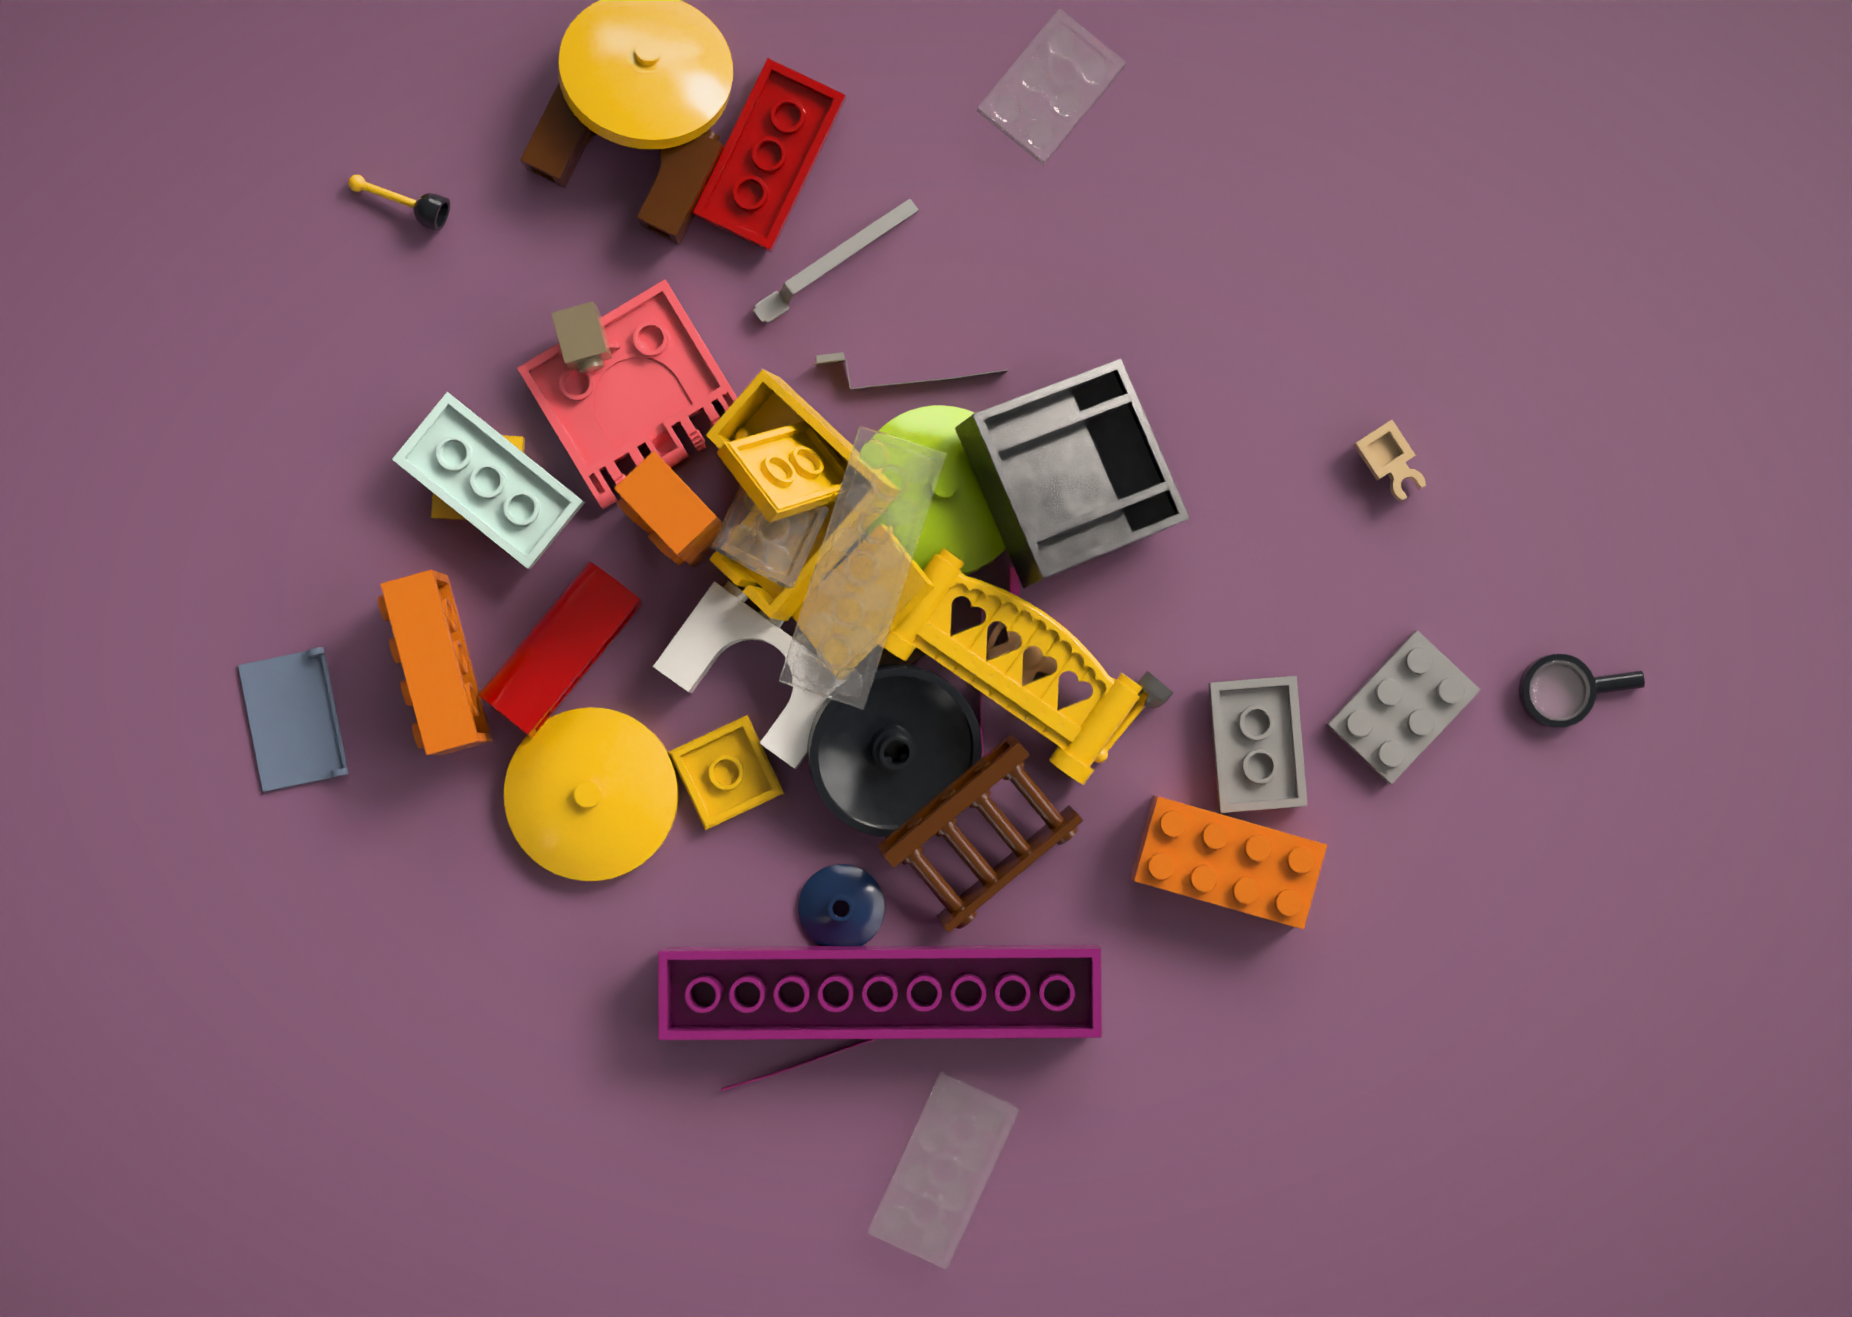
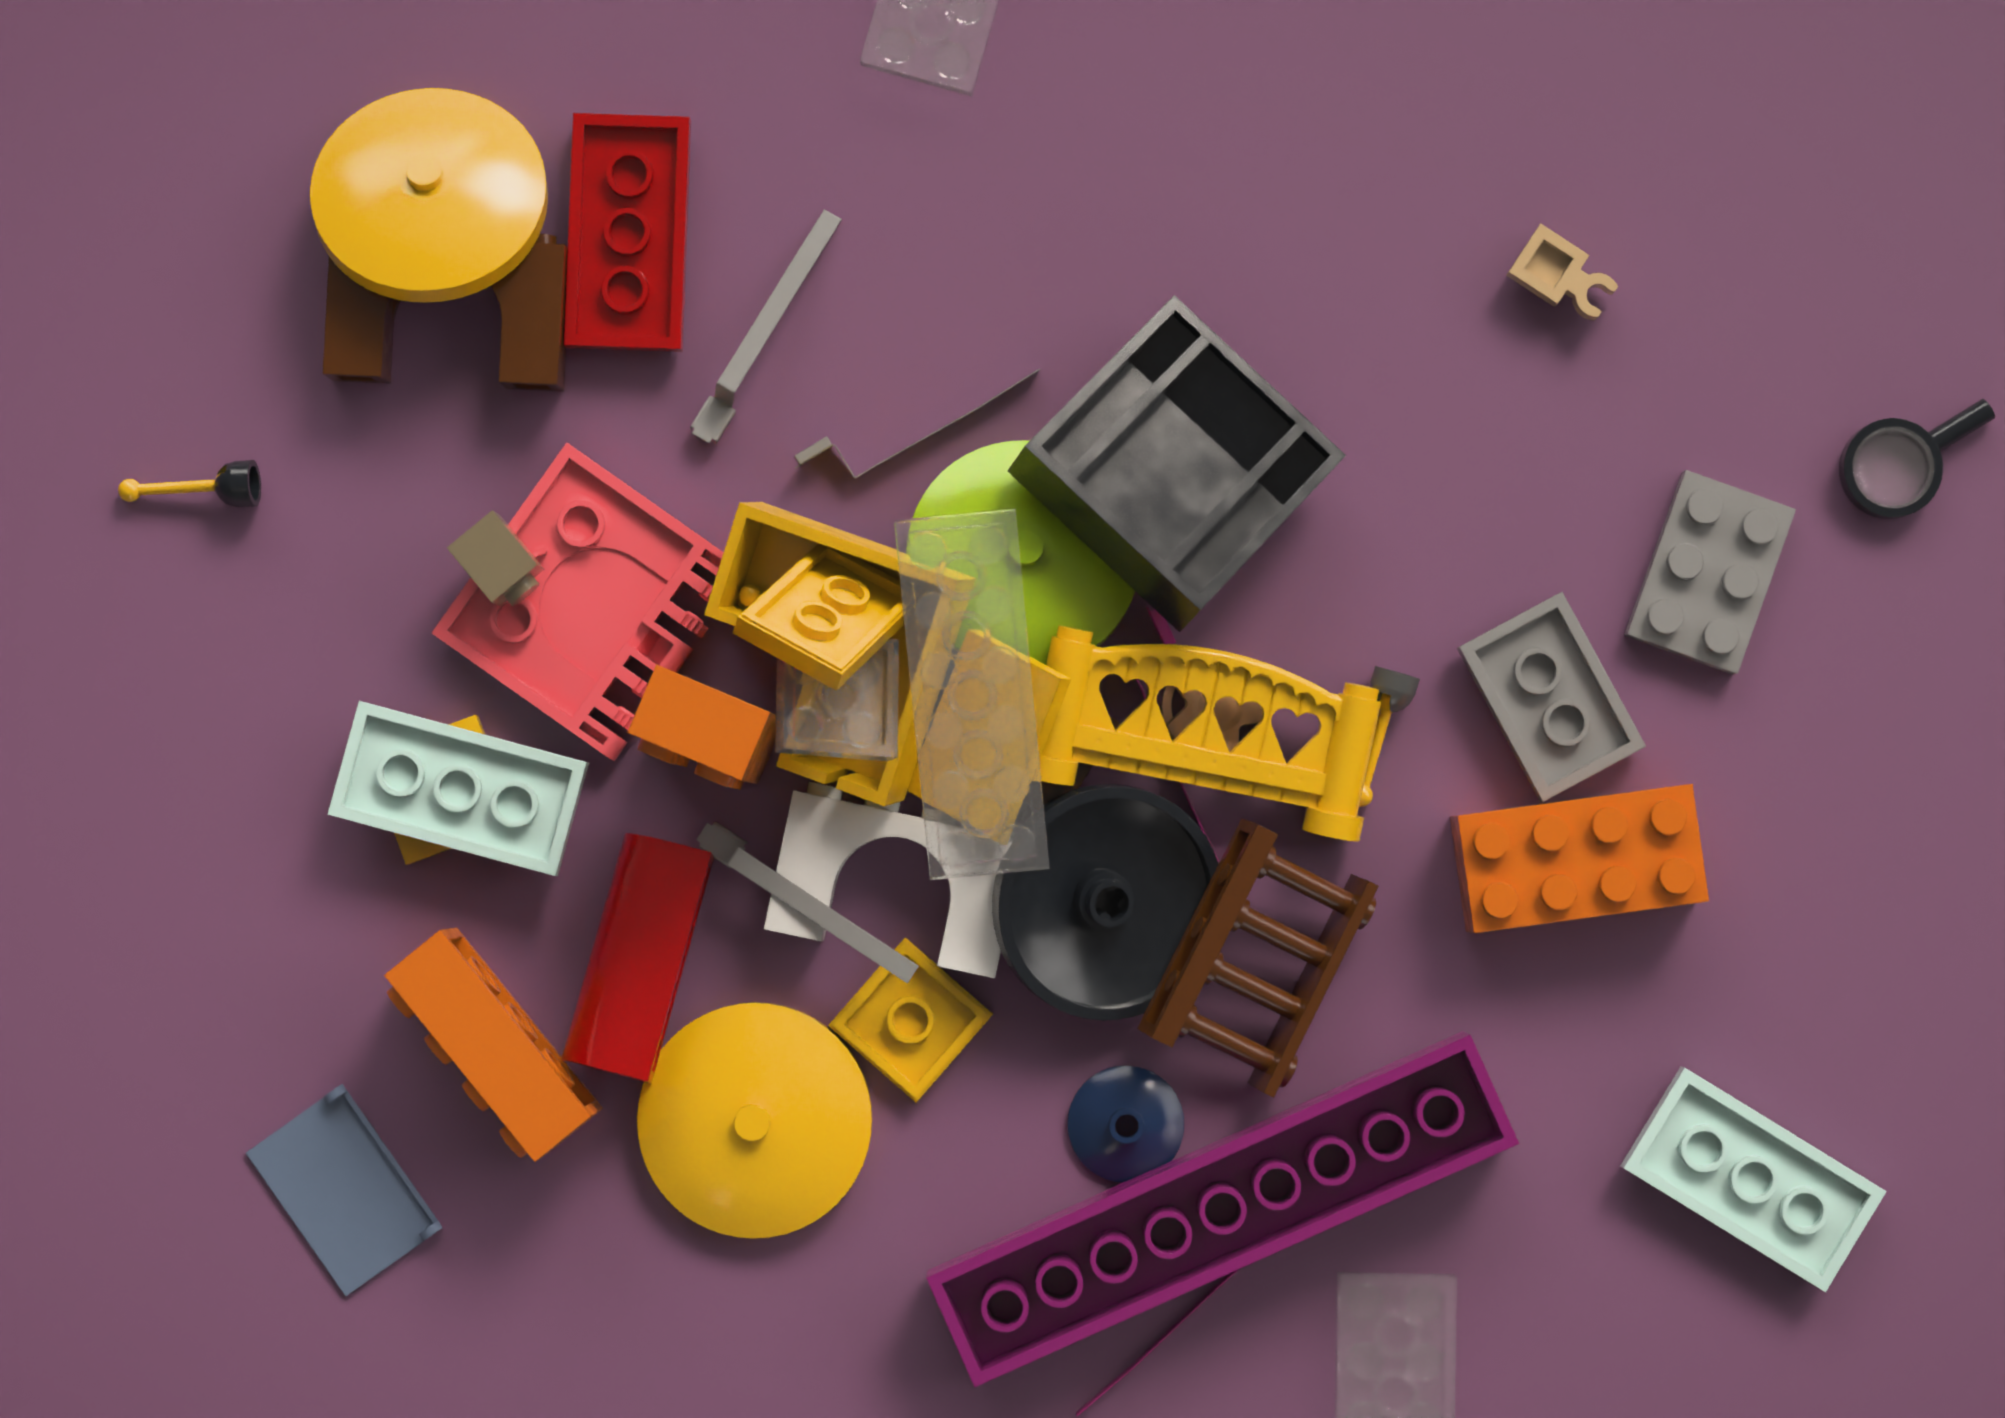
camera: 20 degrees left, 0 degrees up
(654, 604) = (730, 851): none -> light grey piece
(1251, 1132) = (1753, 1178): none -> light aqua plate

